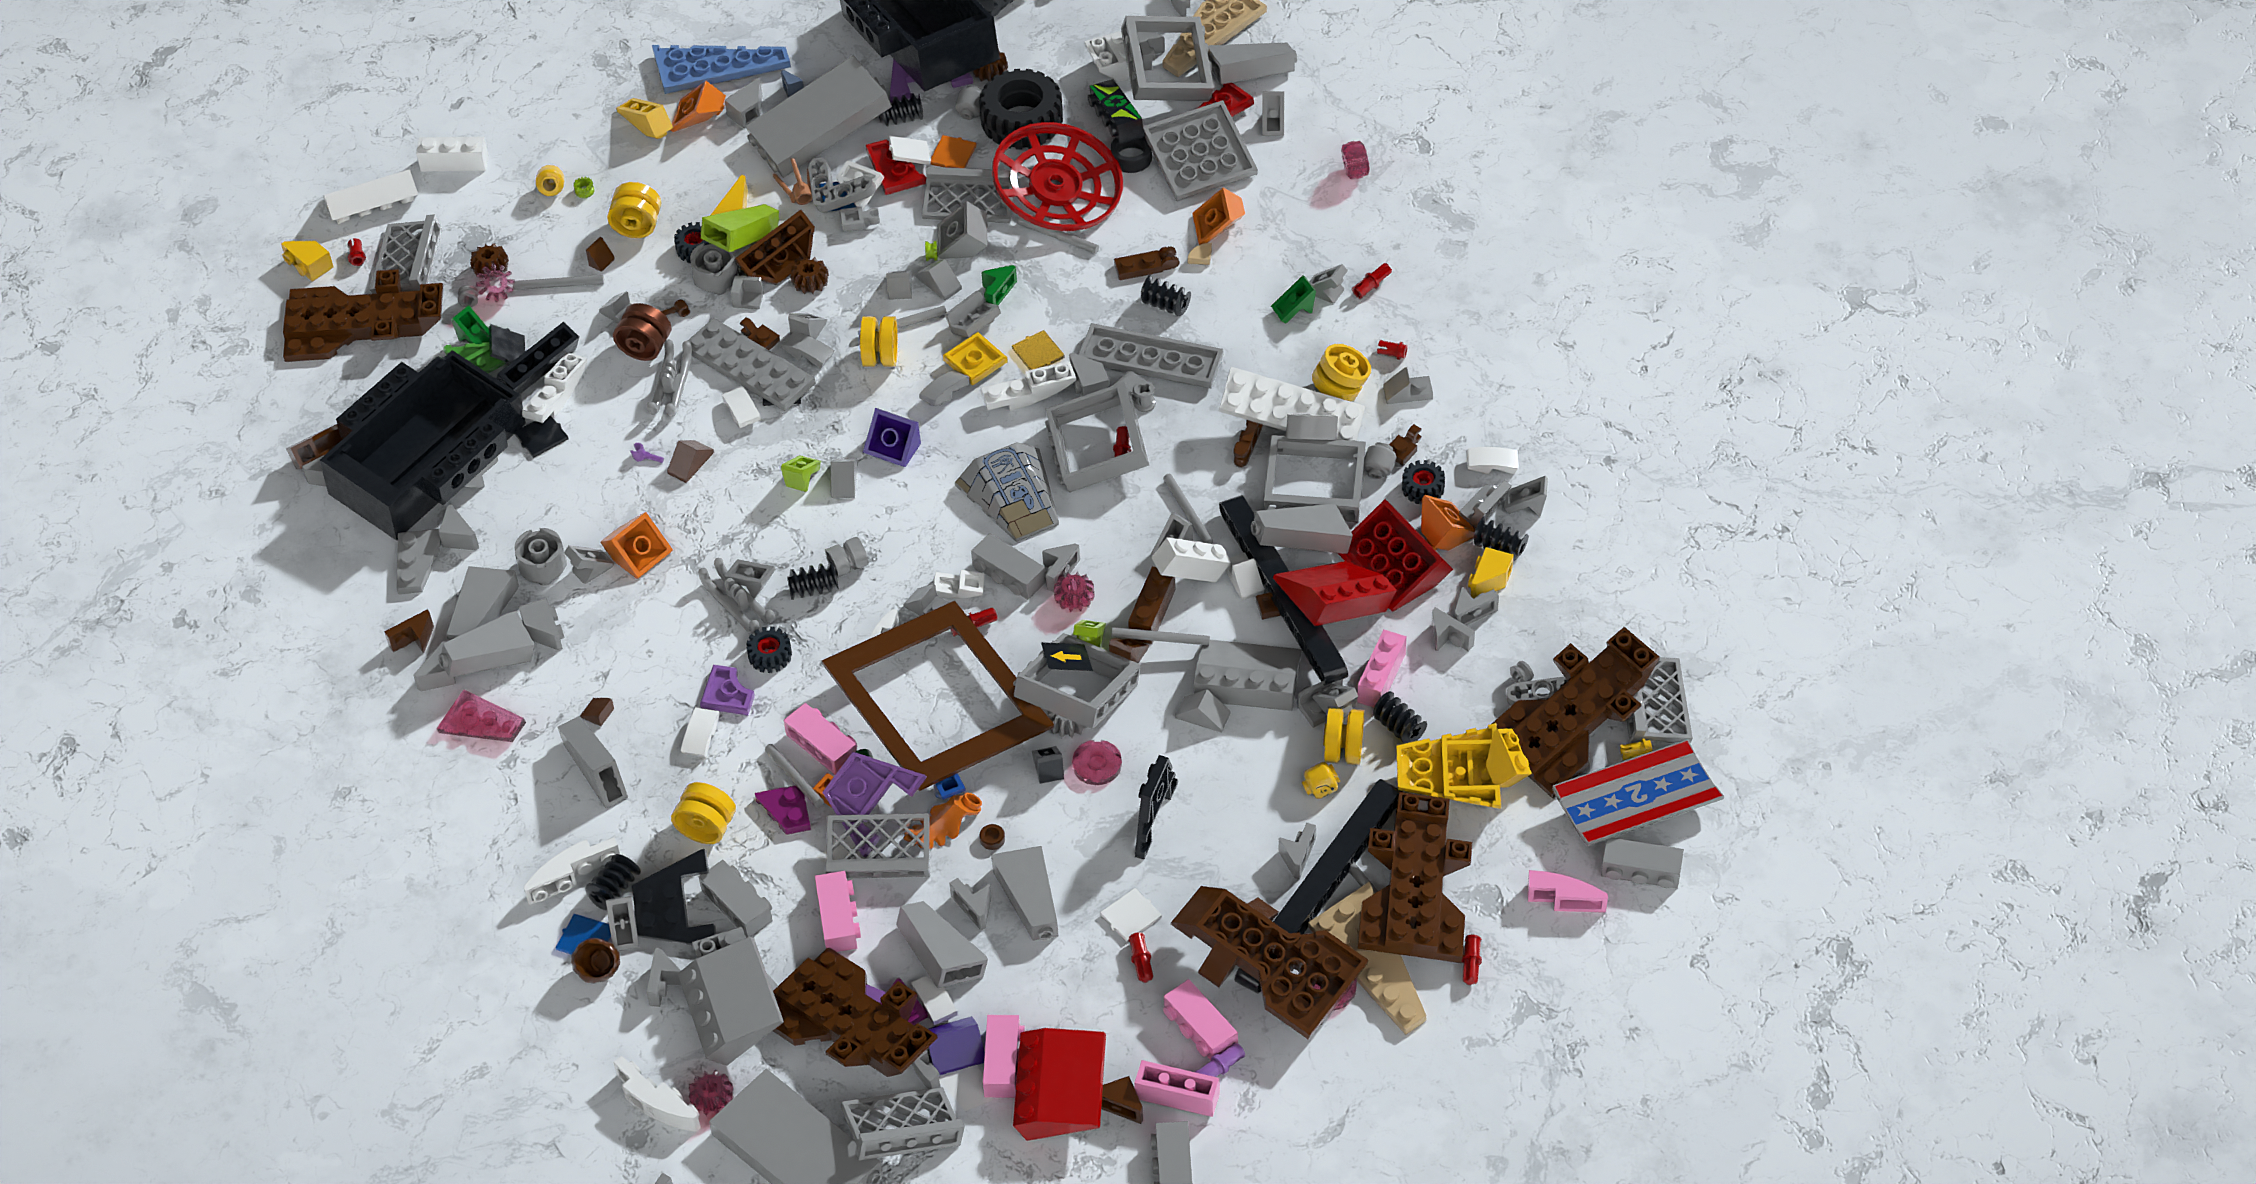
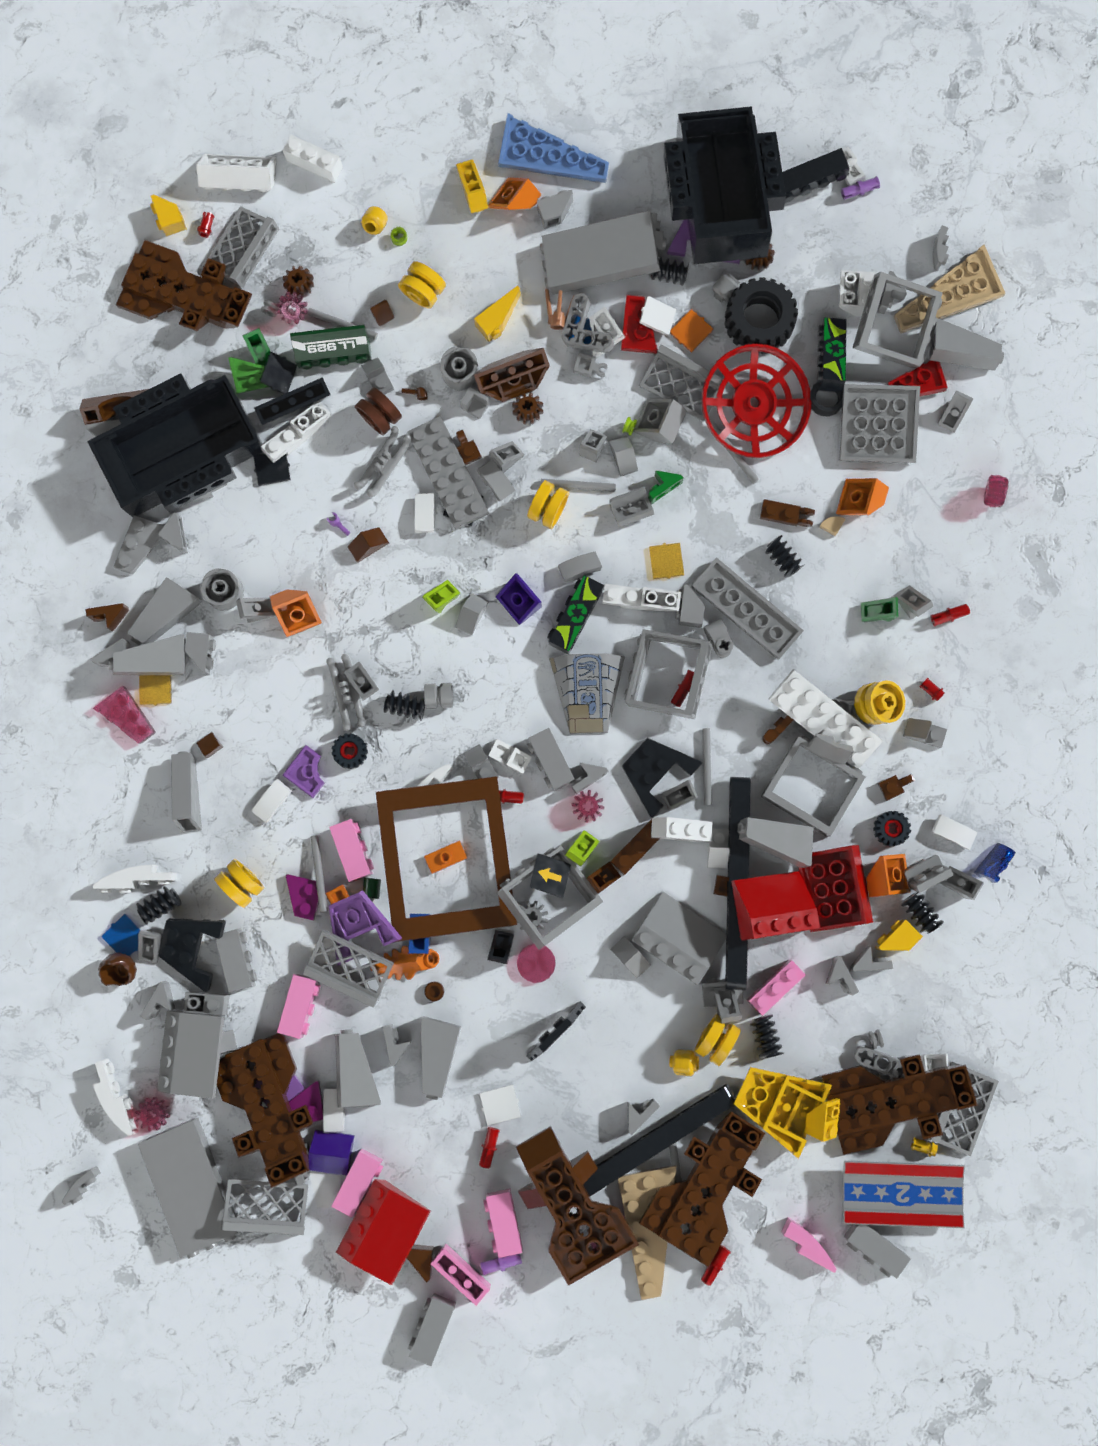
camera: 30 degrees right, 30 degrees up
(502, 684) = (155, 689): none -> clear yellow piece
(557, 297) = (331, 347): none -> dark green slope
(685, 238) = (454, 324): black bush -> none
(739, 227) = (491, 343): lime slope -> none
(791, 83) = (598, 204): sand blue slope -> none
(936, 705) = (445, 857): none -> orange plate
(963, 428) = (575, 615): none -> black brick
(975, 358) = (615, 548): yellow plate -> none
(1124, 530) = (649, 765): none -> black wing
(1160, 636) = (629, 882): light grey bar -> none
(1379, 460) = (869, 794): light grey head -> none
(1553, 461) = (995, 863): none -> clear blue slope

